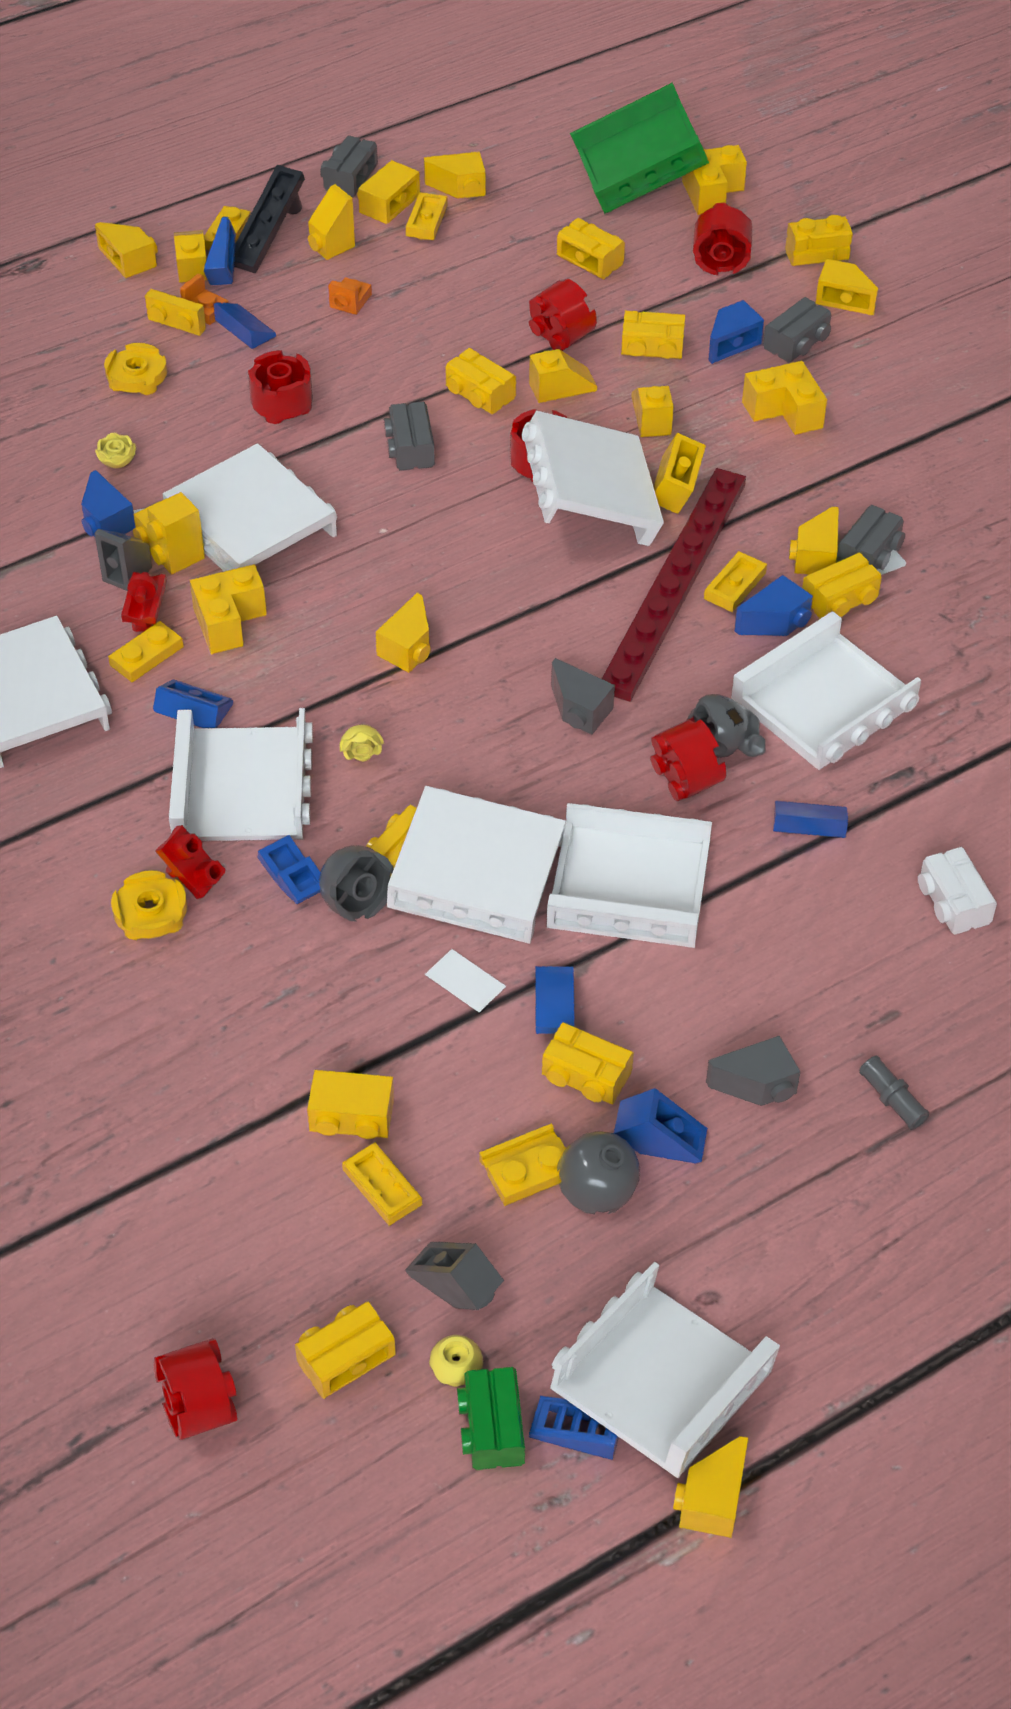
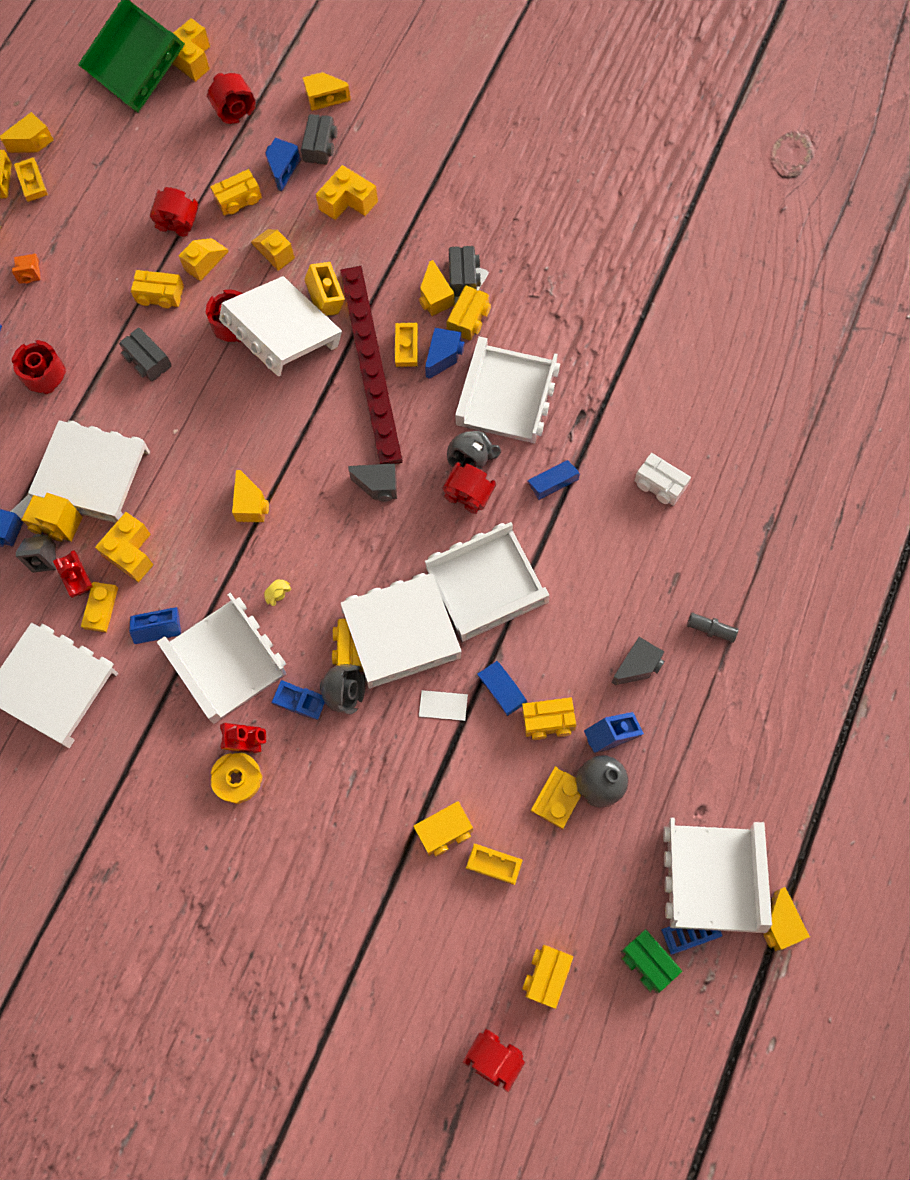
camera: 30 degrees left, 20 degrees up
(452, 1371) = (597, 941): light yellow plate -> none
(456, 1274) = (571, 892): dark grey slope -> none
(590, 248) = (152, 147): yellow brick -> none
(818, 240) = (285, 64): yellow brick -> none

